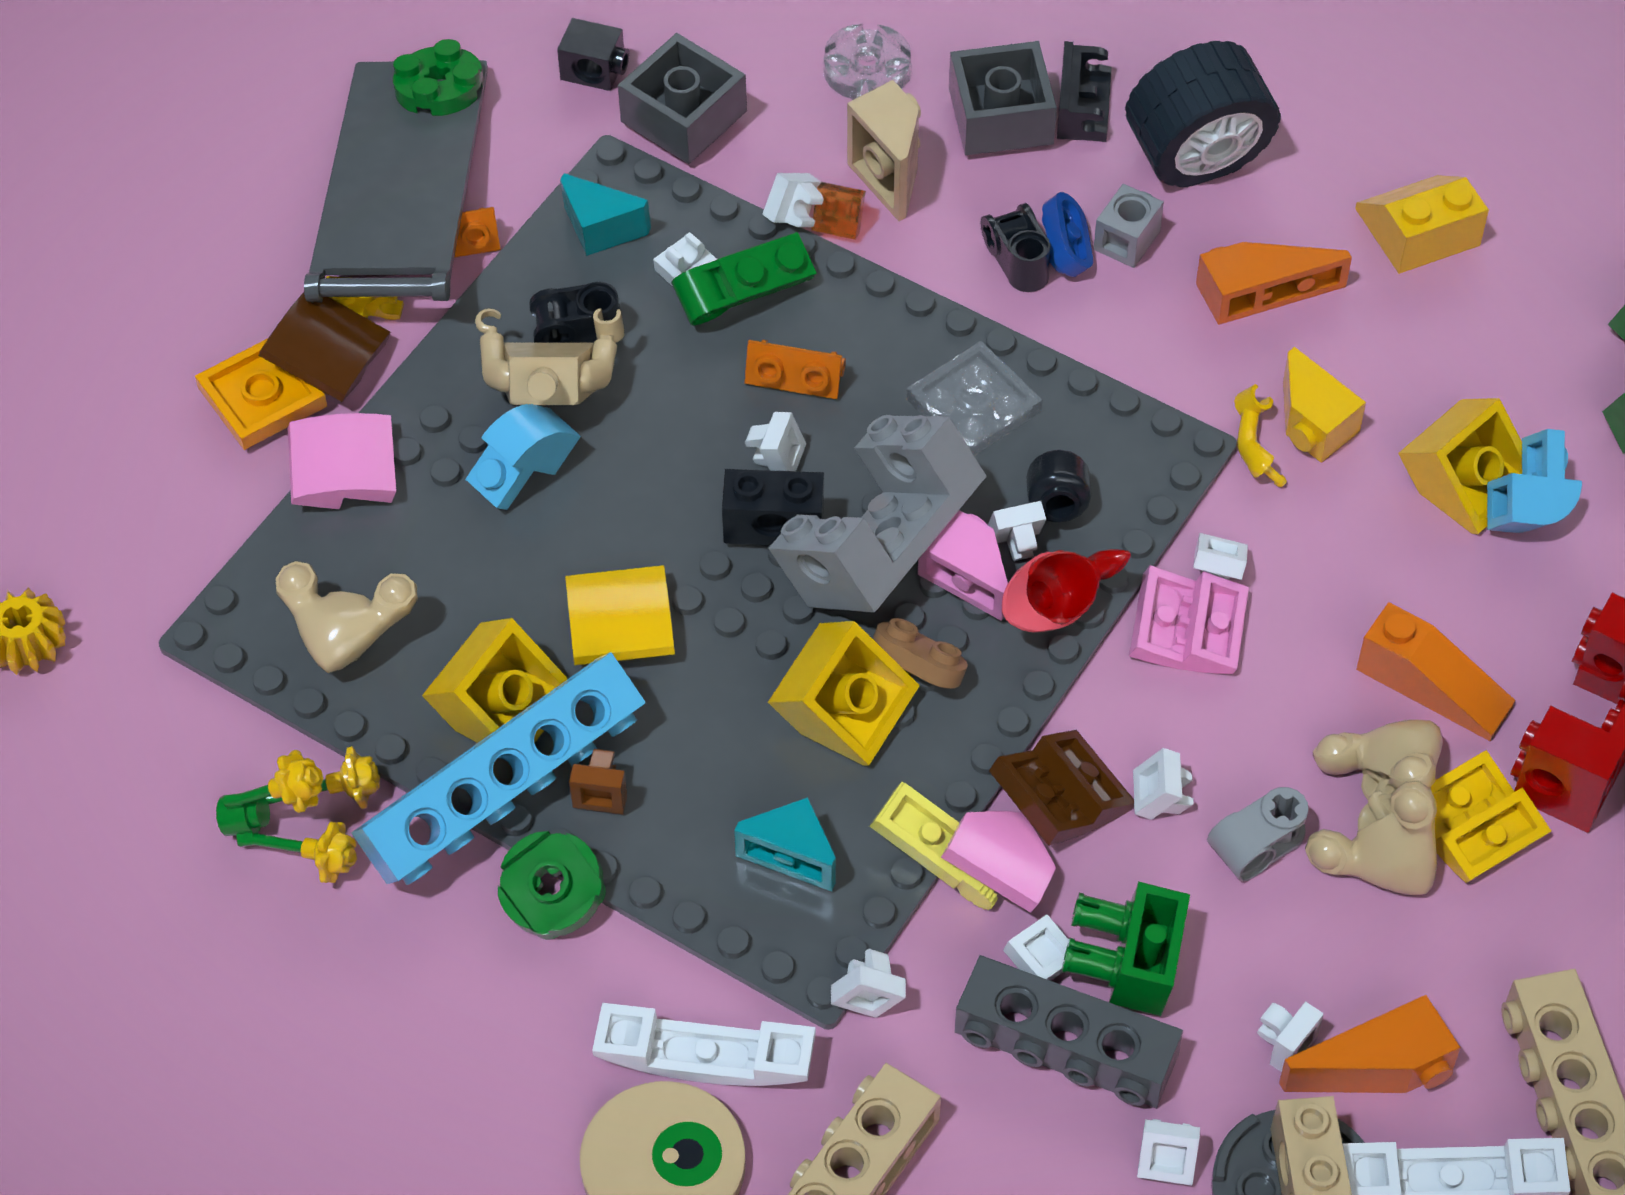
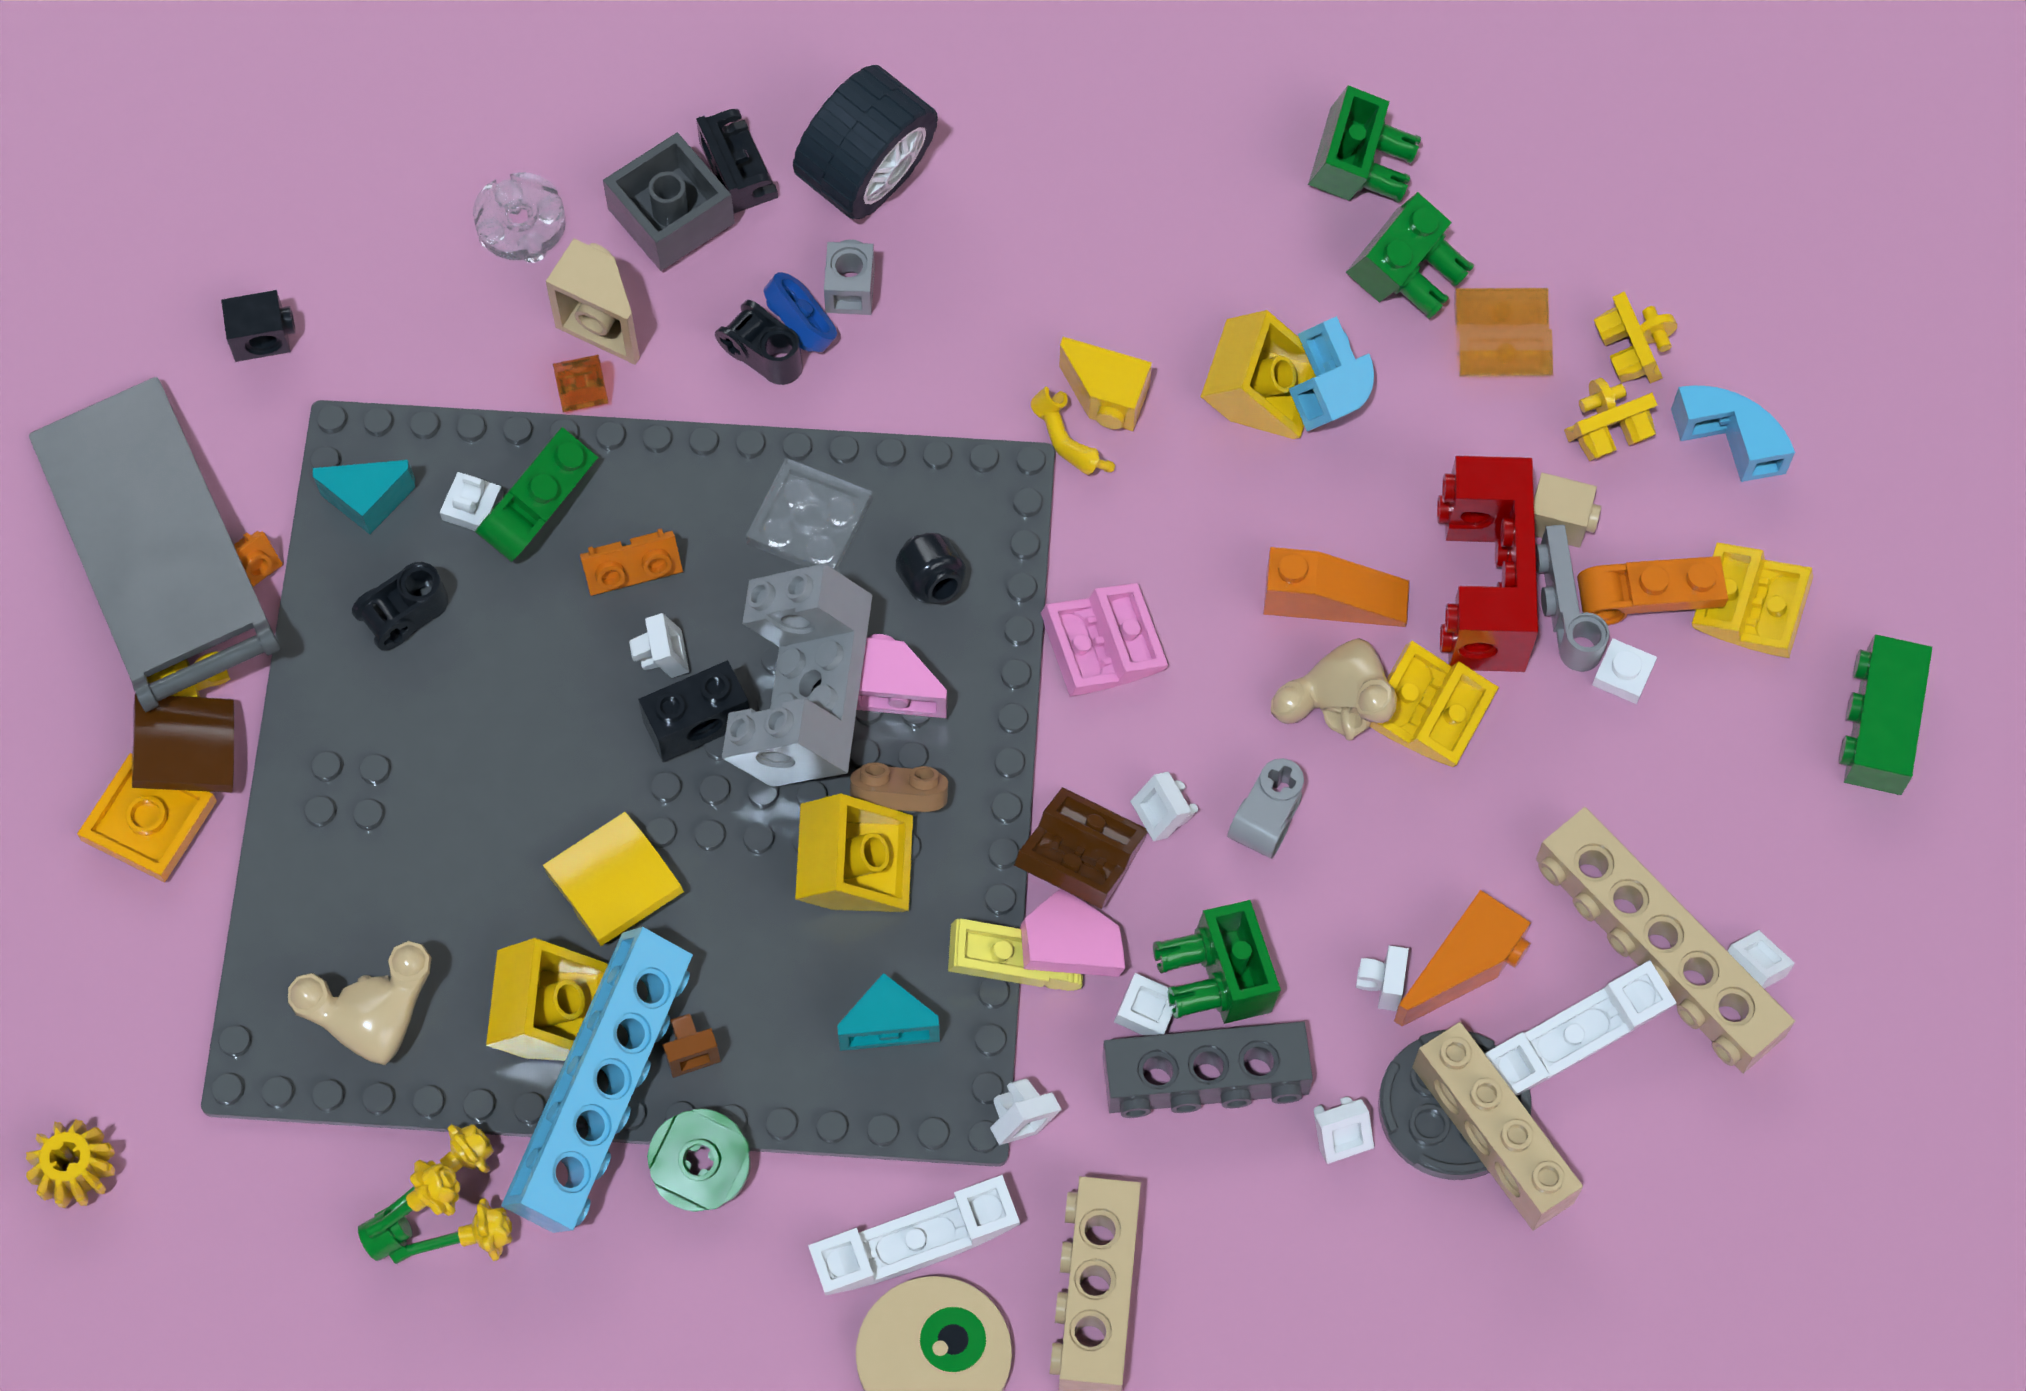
camera: 30 degrees left, 10 degrees up
(341, 459) = (268, 850): bright pink slope -> none
(418, 73) = (116, 400): green plate -> none
(518, 444) = (431, 763): medium azure brick -> none
(549, 370) = (415, 675): tan torso -> none
(682, 98) = (373, 335): dark grey brick -> none
(793, 199) = (534, 392): white tile -> none
(1018, 527) = (919, 626): white tile -> none
(1057, 588) = (986, 669): red hair -> none
(1220, 556) = (1100, 566): white plate -> none
(1266, 276) = (992, 275): orange slope -> none
(1391, 845) = (1381, 766): tan head -> none
(1425, 220) = (1101, 151): yellow slope -> none

